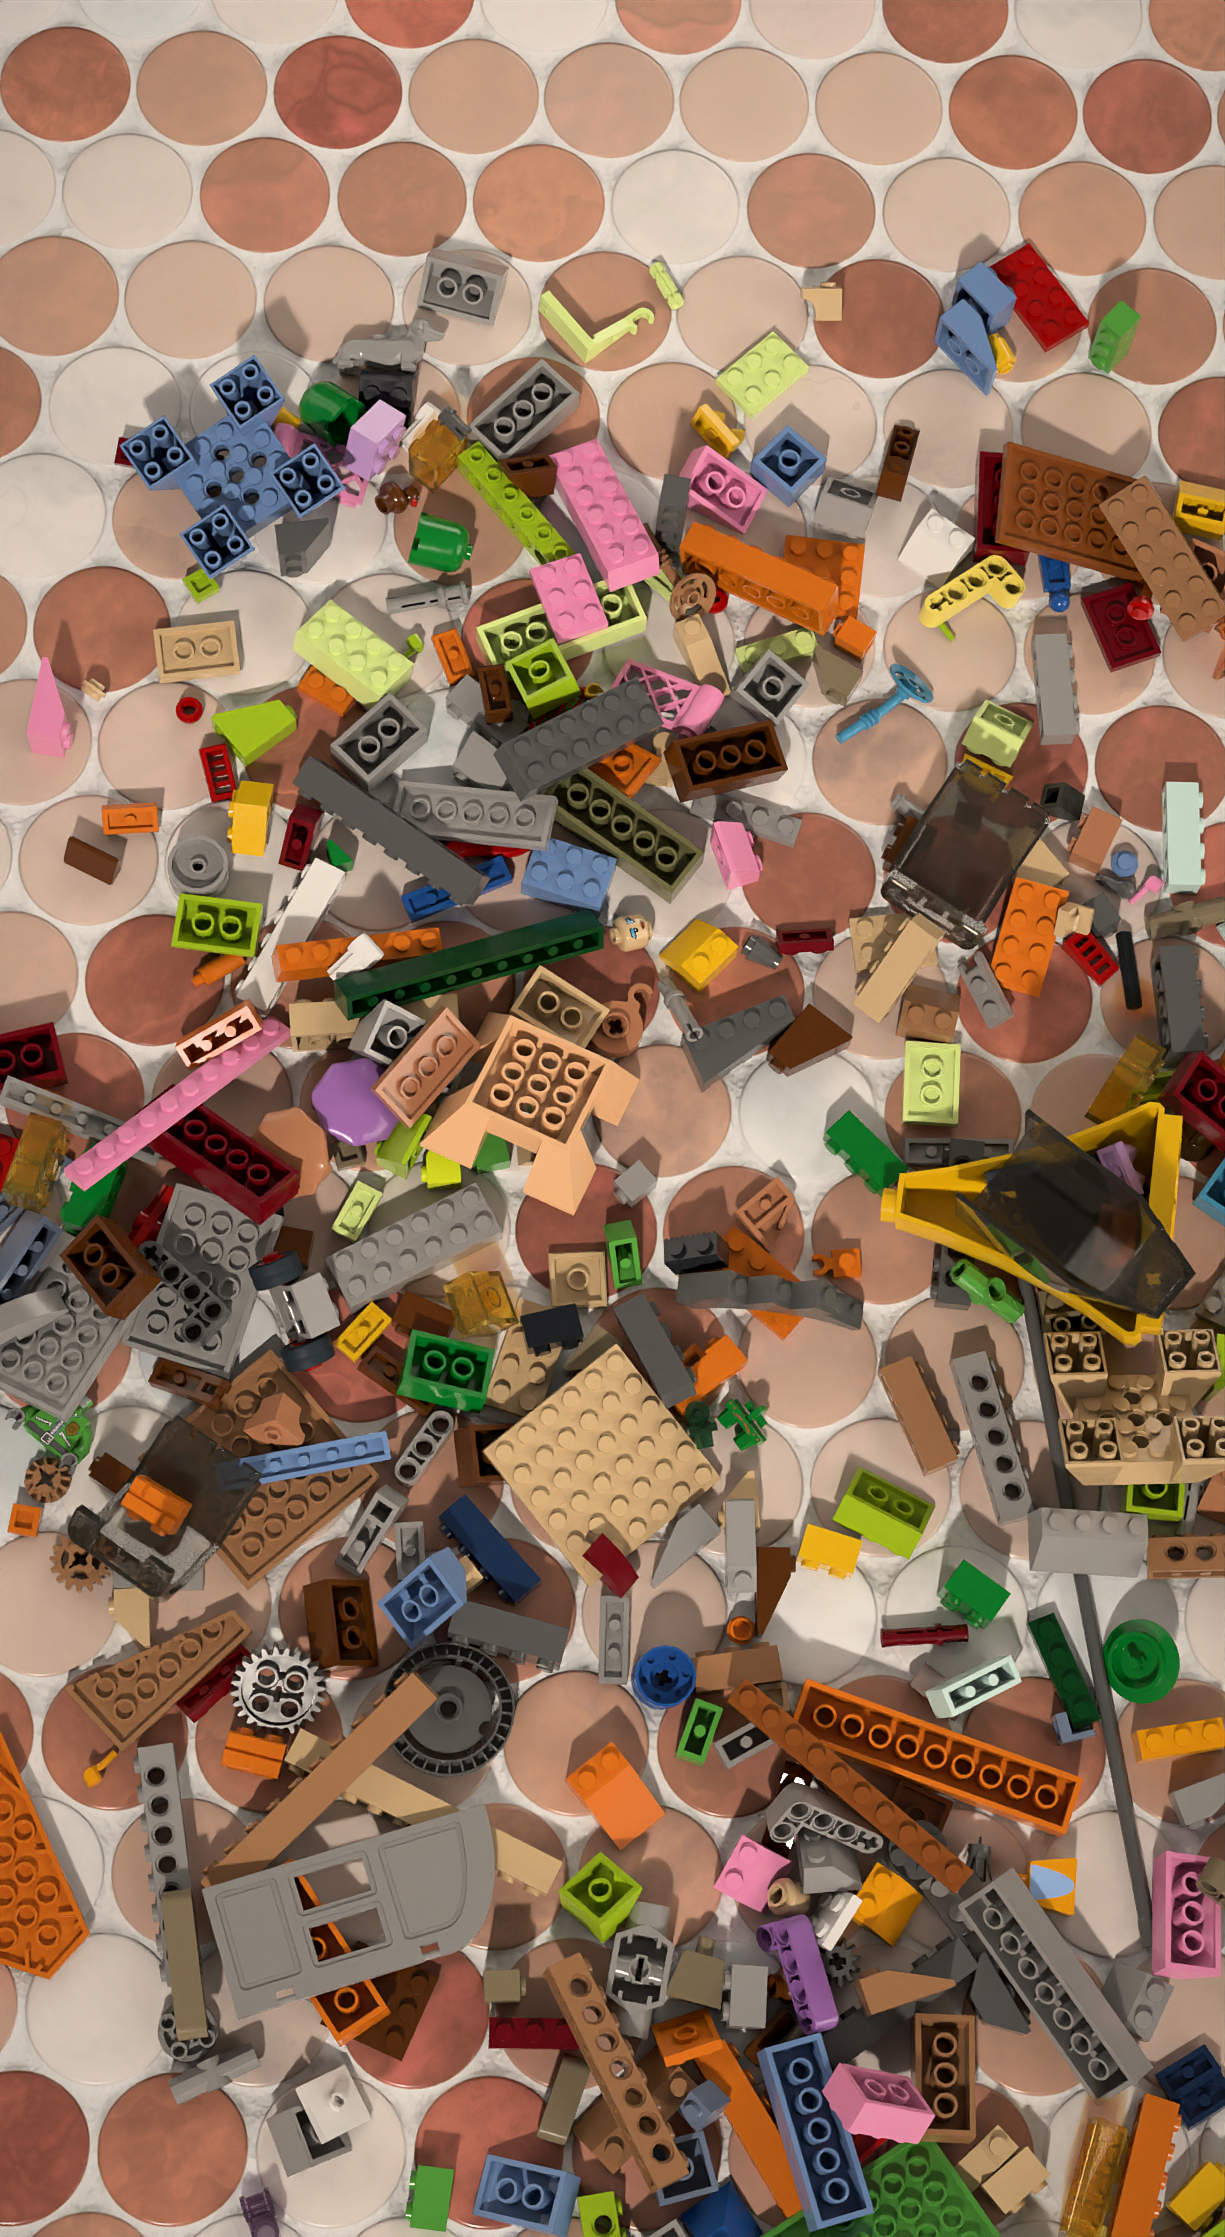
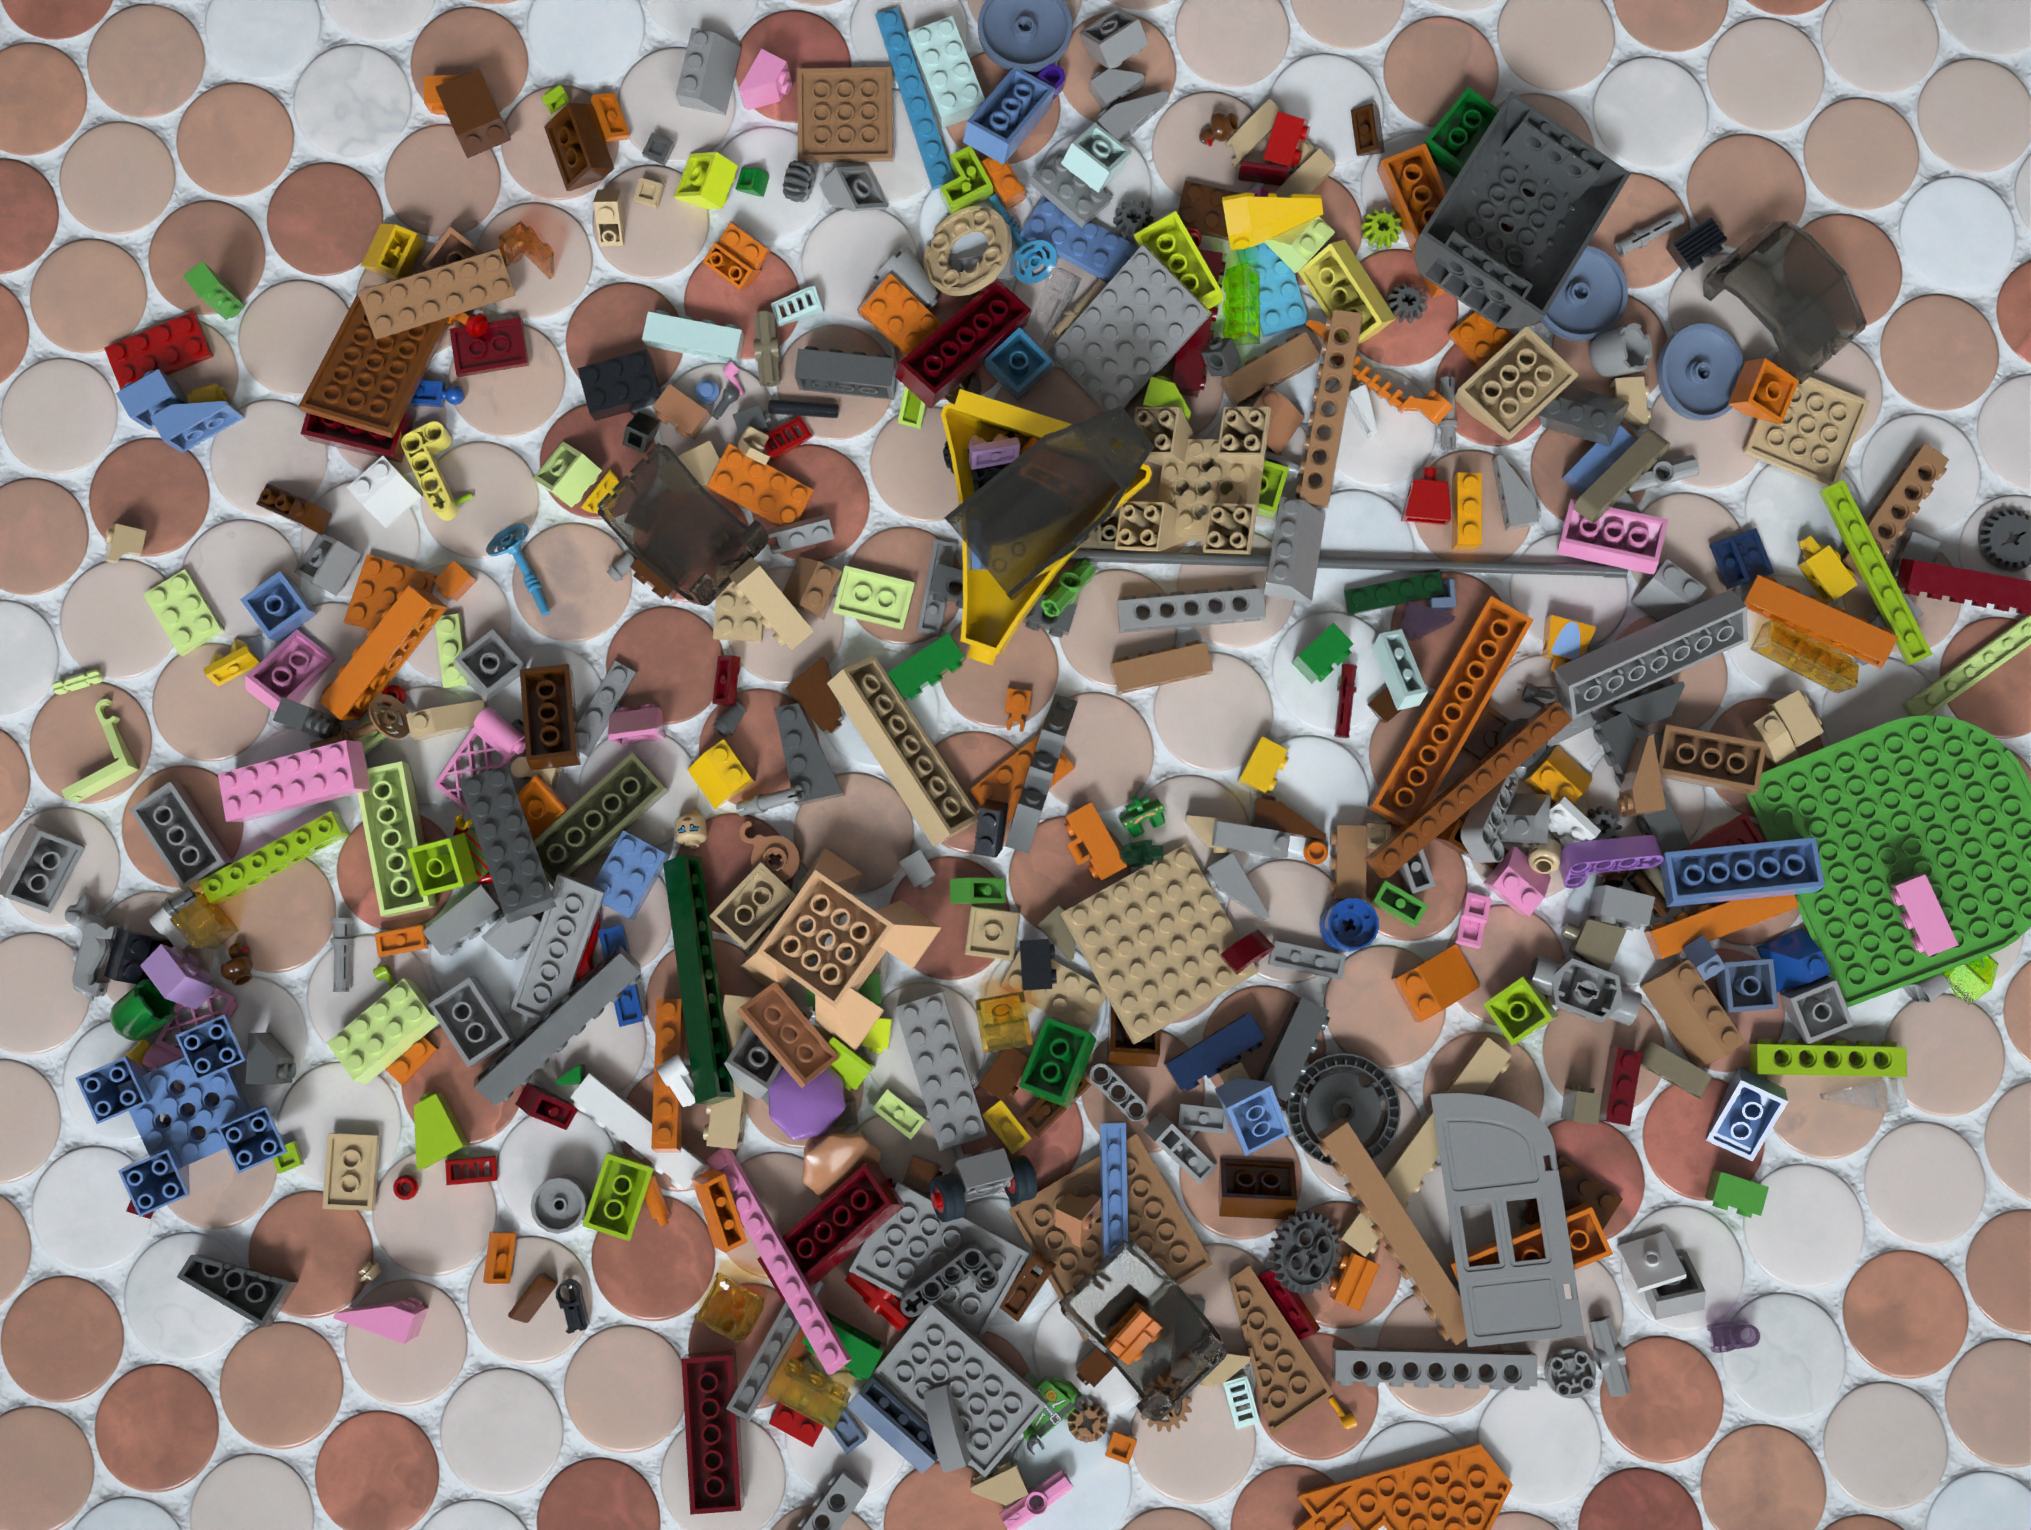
camera: 70 degrees left, 10 degrees up
(55, 567) = (242, 1289): none -> dark grey wedge
(86, 907) = (575, 1309): none -> black piece
(100, 1658) = (1234, 1381): none -> light aqua slope
(110, 1267) = (920, 1344): reddish brown brick -> none
(112, 1069) = (730, 1309): none -> clear yellow slope
(184, 1964) = (1525, 1370): dark tan beam -> none
(250, 814) = (520, 1149): yellow brick -> none
(440, 544) = (292, 933): green cylinder -> none
(495, 694) = (447, 910): reddish brown slope -> none
(531, 473) = (240, 839): reddish brown slope -> none
(568, 598) = (369, 827): bright pink plate -> none
(613, 2088) = (1759, 1006): medium nougat brick -> none
(654, 1350) = (1071, 879): dark grey brick -> none
(686, 2037) = (1644, 961): orange plate -> none
(696, 1828) = (1472, 920): none -> bright pink slope
(765, 1141) = (903, 750): none -> tan brick
(767, 1213) = (963, 760): nougat wing -> none
(835, 676) = (487, 605): dark tan slope -> none
(878, 2104) = (1734, 817): bright pink brick -> none
(884, 1513) = (1238, 713): lime slope -> none
(1036, 1709) = (1420, 621): none -> clear purple slope
(1054, 689) = (535, 417): light grey brick -> none
(1110, 769) = (620, 384): none -> black brick
(1127, 1080) = (911, 431): clear yellow brick -> none
(1141, 1661) = (1399, 527): green piece -> none
(1188, 1695) = (1427, 500): none -> red torso

